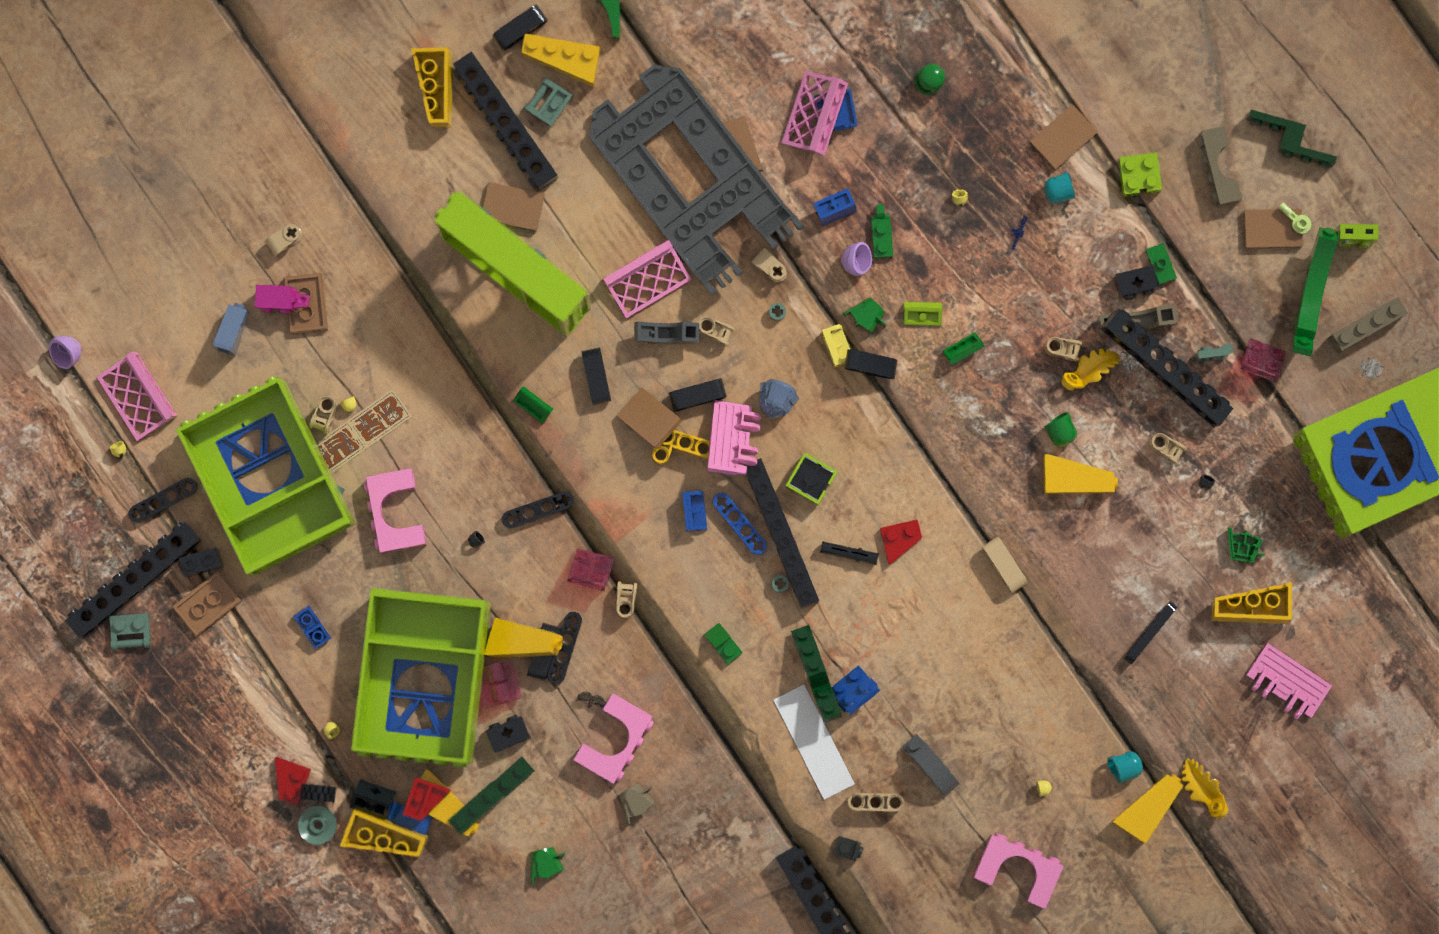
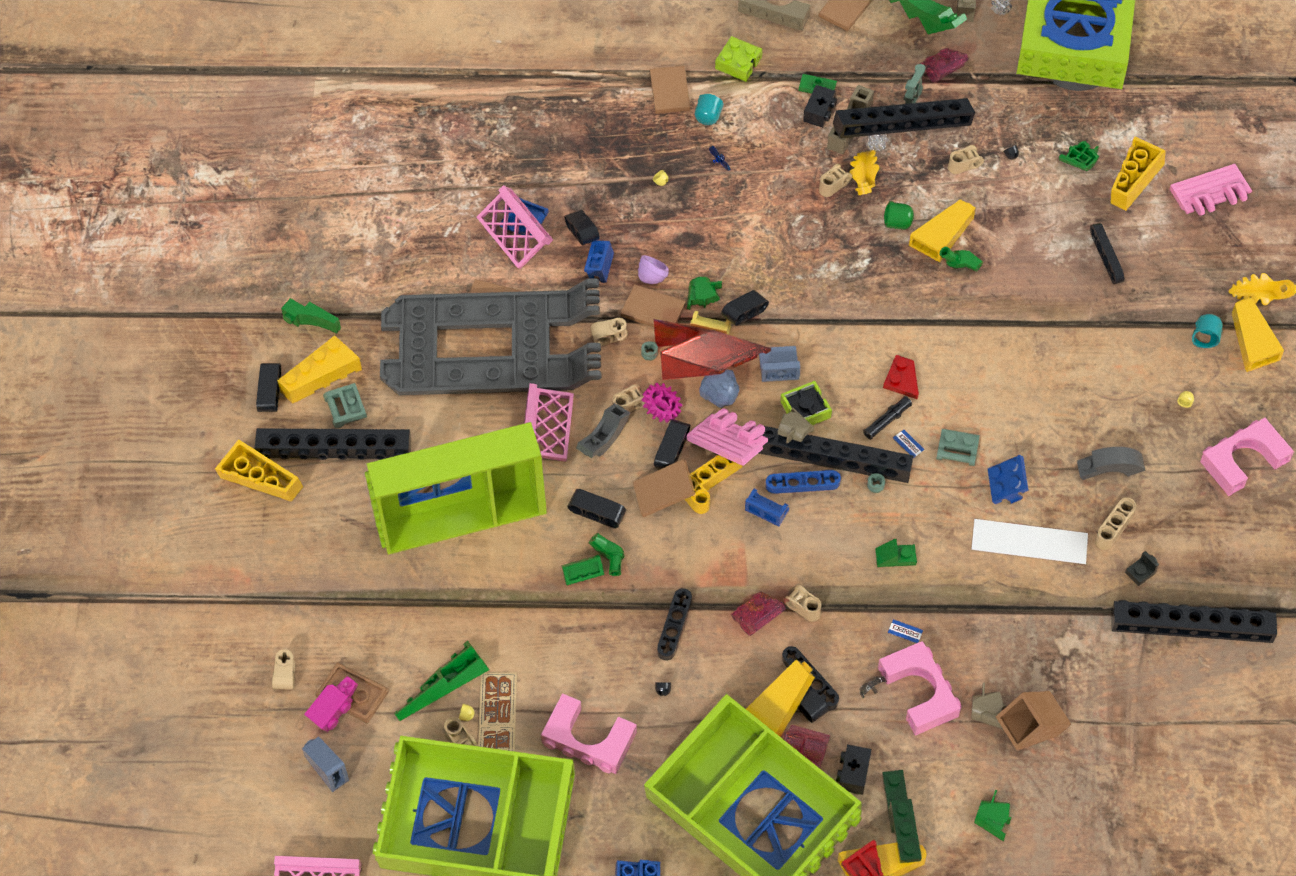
camera: 50 degrees left, 25 degrees down
(377, 372) = (454, 674): none -> green wedge
(566, 414) = (610, 551): none -> green arm
(644, 846) = (1033, 719): none -> medium nougat slope
(660, 694) = (905, 631): none -> sticker
(725, 367) = (663, 403): none -> dark pink gear
(774, 487) = (794, 426): none -> dark tan piece
(797, 373) = (700, 350): none -> clear red windscreen
(816, 674) = (974, 496): dark green bracket -> none
(821, 285) = (645, 305): none -> medium nougat tile
(839, 585) = (908, 443): none -> sticker
(840, 427) = (780, 364): none -> sand blue bracket
(855, 169) = (582, 227): none -> black beam
(868, 627) = (958, 442): none -> sand green plate
(881, 233) = (644, 244): green hinge -> none
(922, 313) = (732, 256): lime slope -> none
(930, 78) = (553, 137): green helmet -> none
(963, 348) = (781, 243): green plate -> none
(1004, 564) = (978, 317): tan beam -> none
(1055, 511) = (961, 259): none -> green arm

